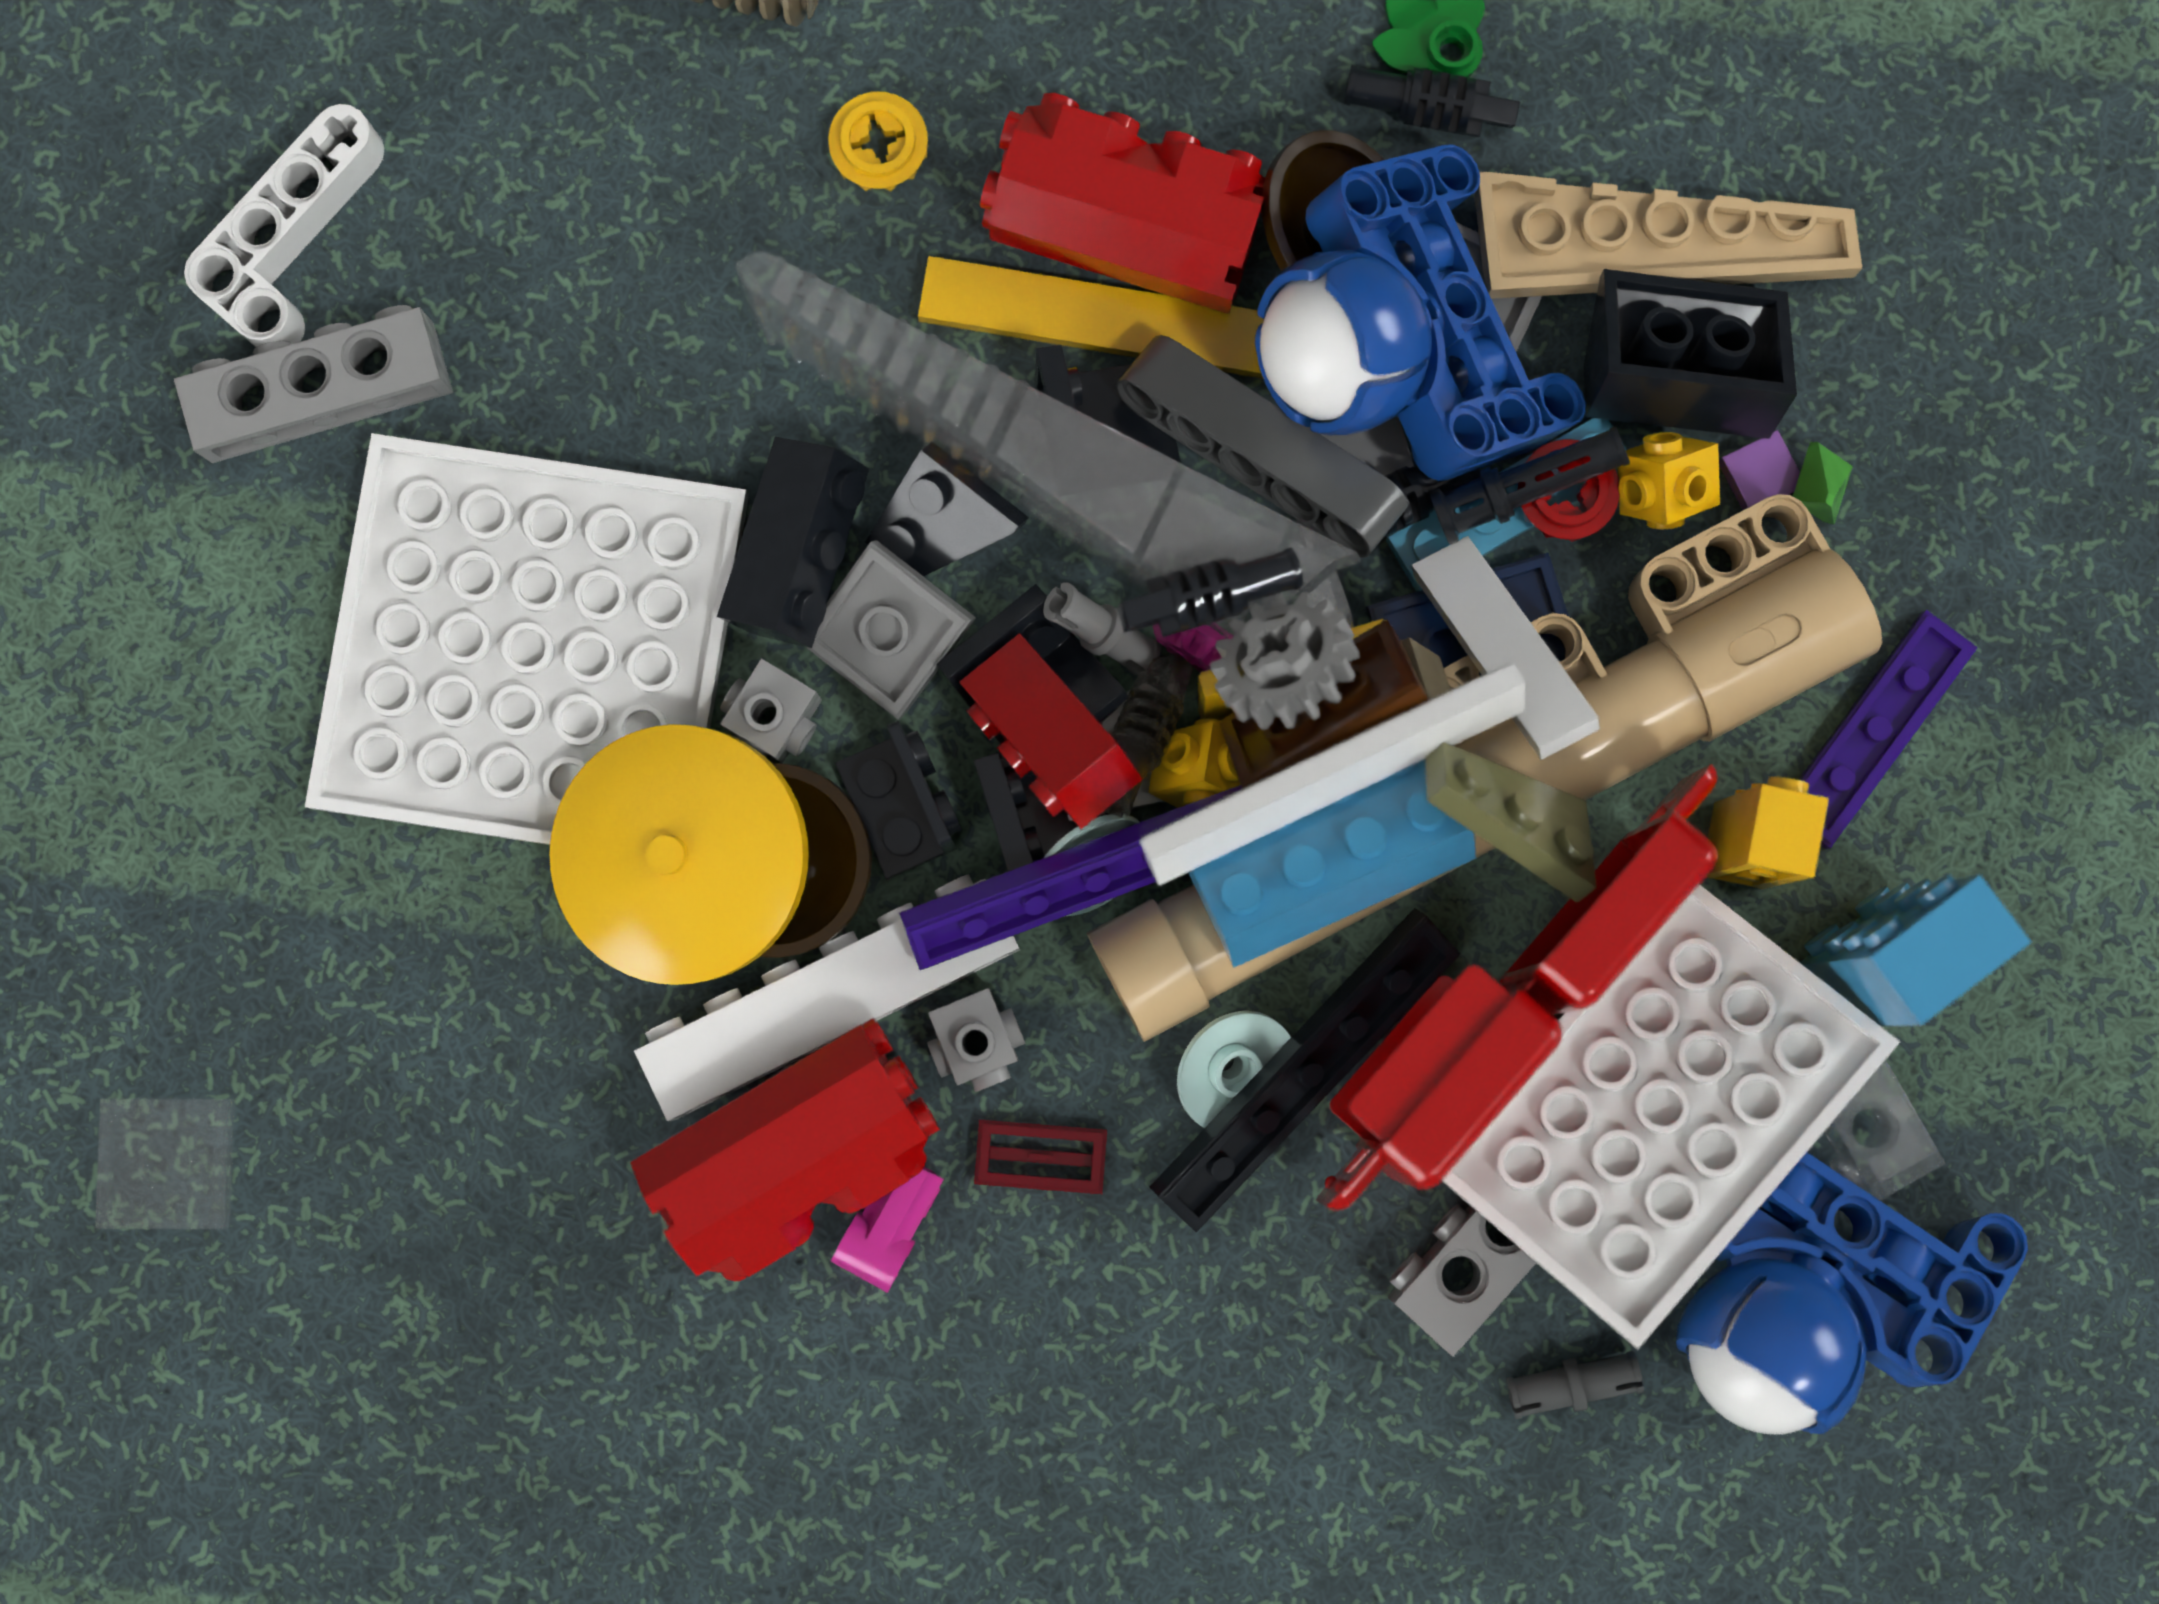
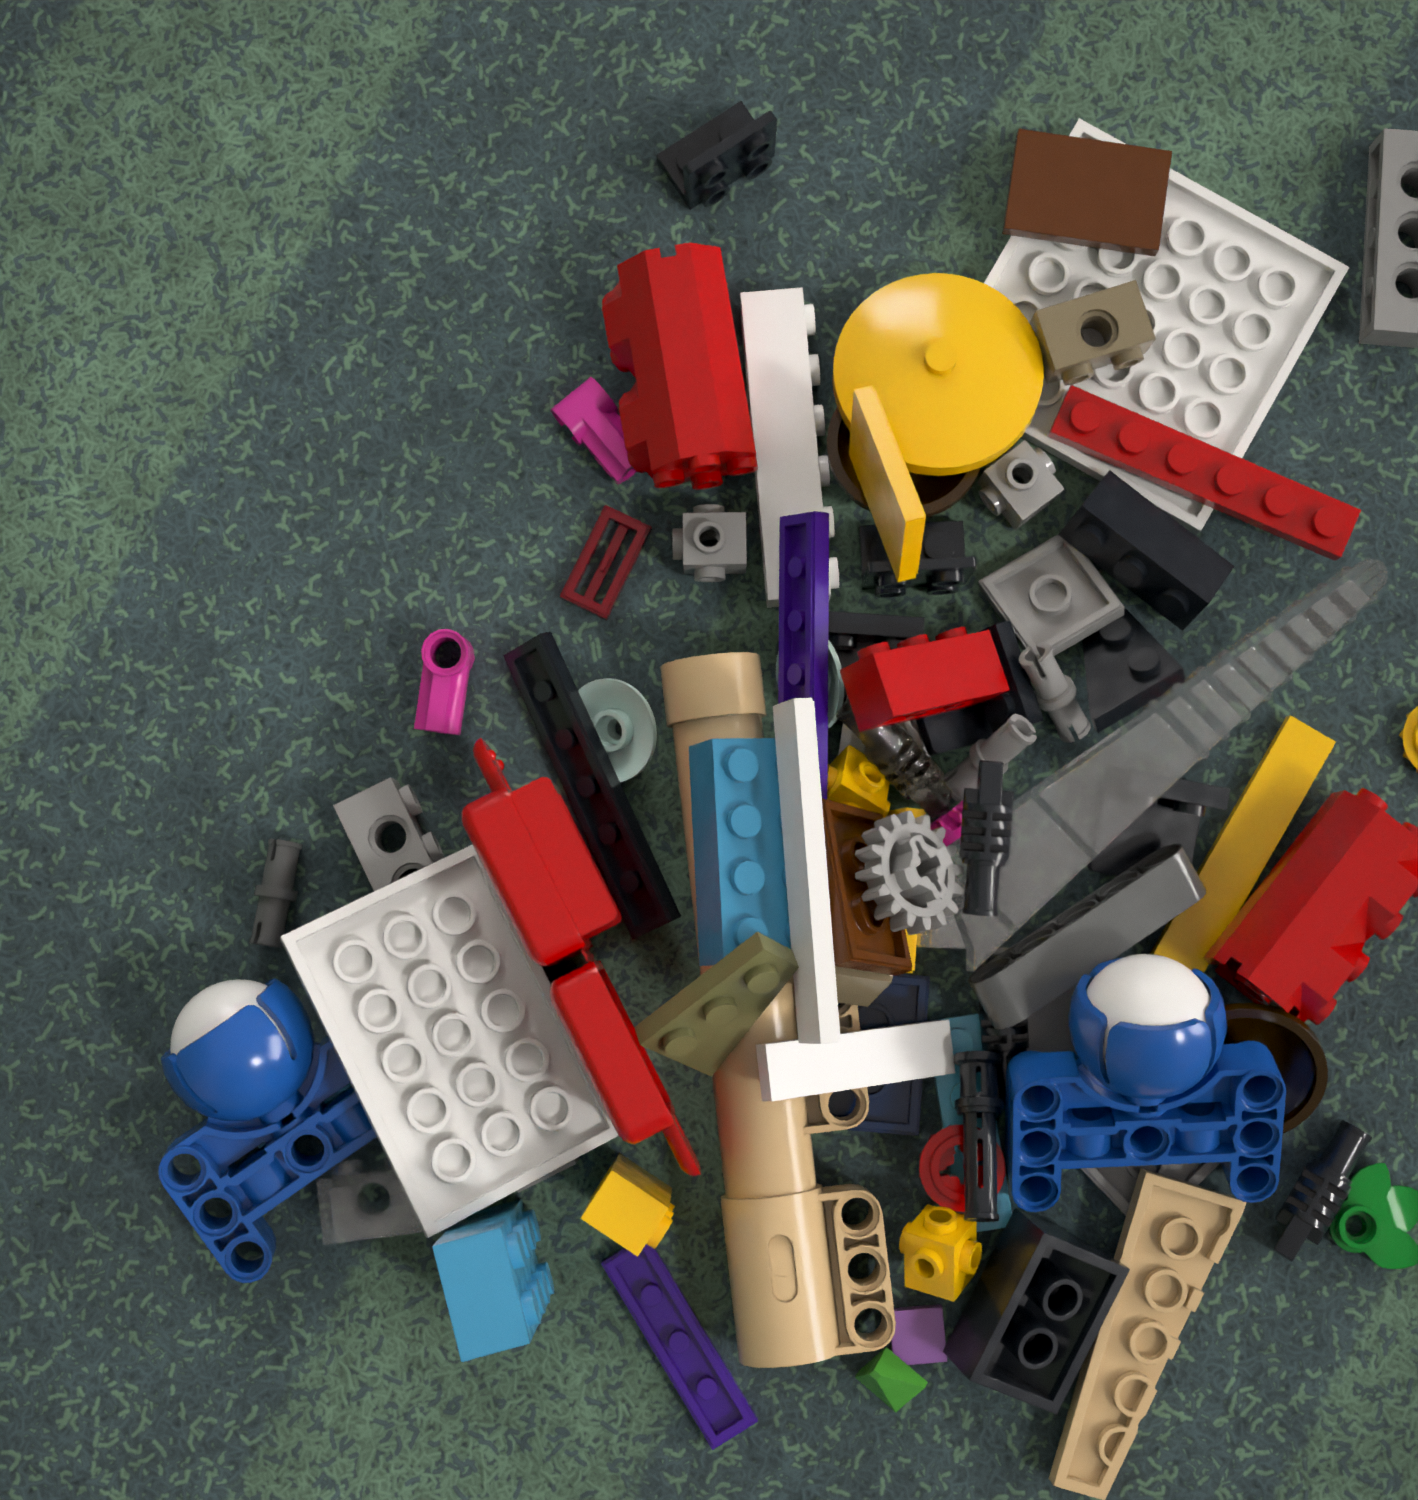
camera: 115 degrees right, 0 degrees up
(394, 763) = (1087, 192): none -> reddish brown tile
(502, 1216) = (720, 154): none -> black bracket
(534, 671) = (1114, 313): none -> dark tan brick
(679, 511) = (1204, 473): none -> red plate
(845, 857) = (886, 483): none -> yellow tile
(997, 584) = (1055, 692): none -> light grey pin
(1263, 1284) = (443, 690): none -> dark pink piece

